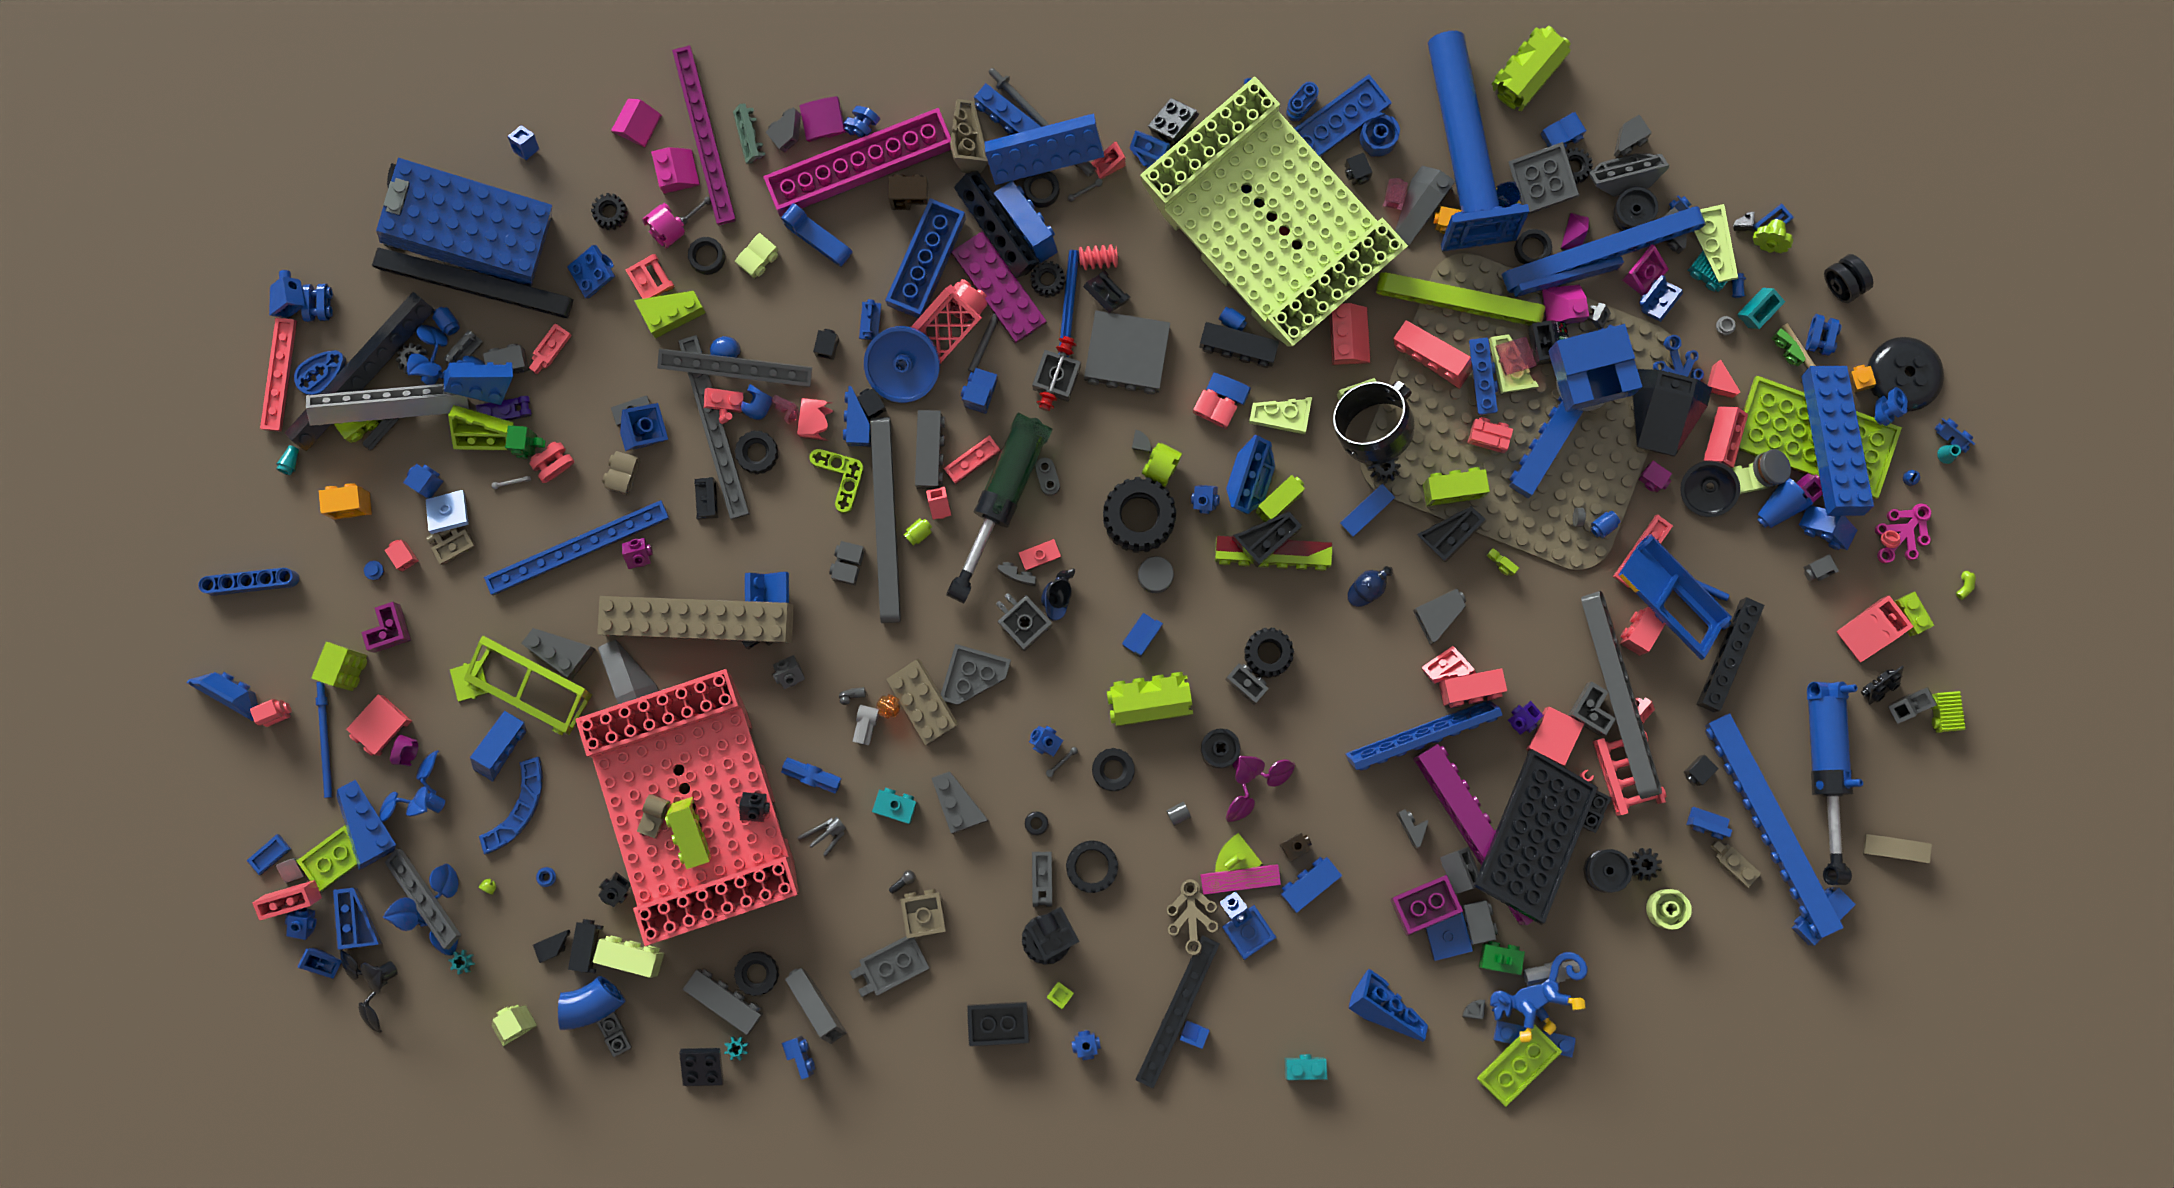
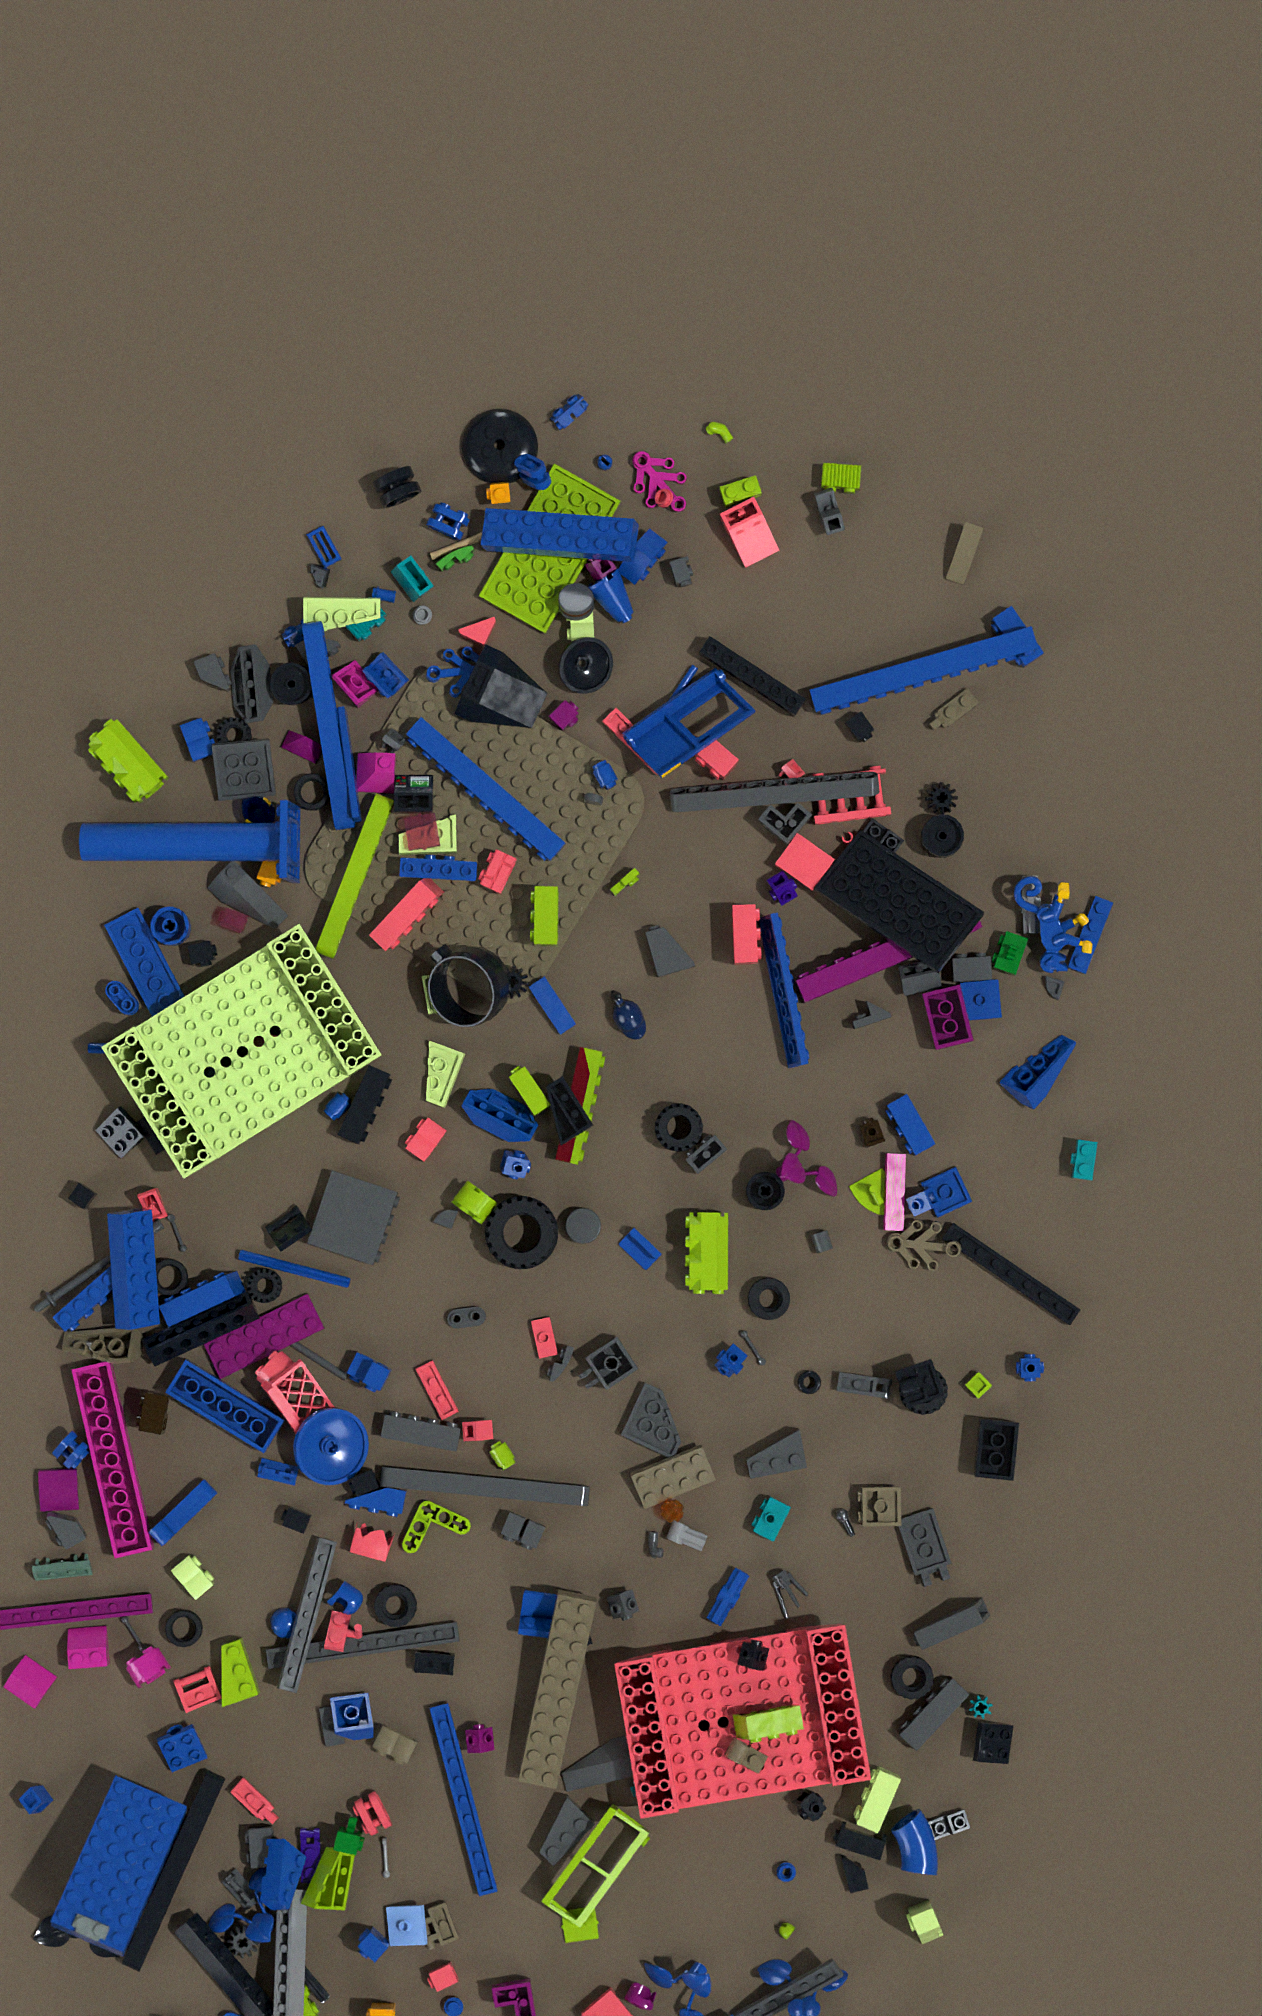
camera: 80 degrees left, 5 degrees up
(446, 320) = (209, 1902): blue brick -> none
(456, 965) = (853, 1959): teal gear -> none
(497, 745) = (650, 1902): blue wedge -> none
(523, 810) = (718, 1887): blue tile -> none
(617, 219) = (132, 1716): black tyre -> none
(784, 405) = (352, 1571): clear pink bracket -> none
(797, 1049) = (990, 1647): blue plate -> none
(1003, 491) = (476, 1364): clear green piece -> none
(1056, 374) = (367, 1292): dark grey brick -> none
(1057, 595) = (588, 1326): black hair -> none
(1098, 257) = (251, 1231): coral piece -> none
(1106, 95) = (82, 1196): none -> black brick
(1112, 864) = (859, 1314): black tyre -> none
(1148, 148) = (148, 1161): blue wing -> none
(1194, 1034) = (1035, 1261): blue panel -> none
(1229, 388) = (406, 1122): blue slope -> none
(1349, 335) = (372, 990): coral slope -> none
(1447, 666) = (720, 954): wing -> none
(1453, 532) = (590, 927): black wedge -> none
(1519, 1066) = (1113, 955): lime tile -> none
(1595, 368) = (455, 764): blue piece -> none
(1672, 919) = (978, 790): yellowish green brick -> none
(1709, 822) = (910, 728): blue bracket -> none
(1726, 435) = (536, 639): coral brick -> none
(1773, 237) = (341, 552): lime plant -> none
(1831, 763) = (873, 601): blue piece -> none
(1886, 681) = (803, 525): black hinge -> none
(1948, 453) = (587, 427): teal cone -> none

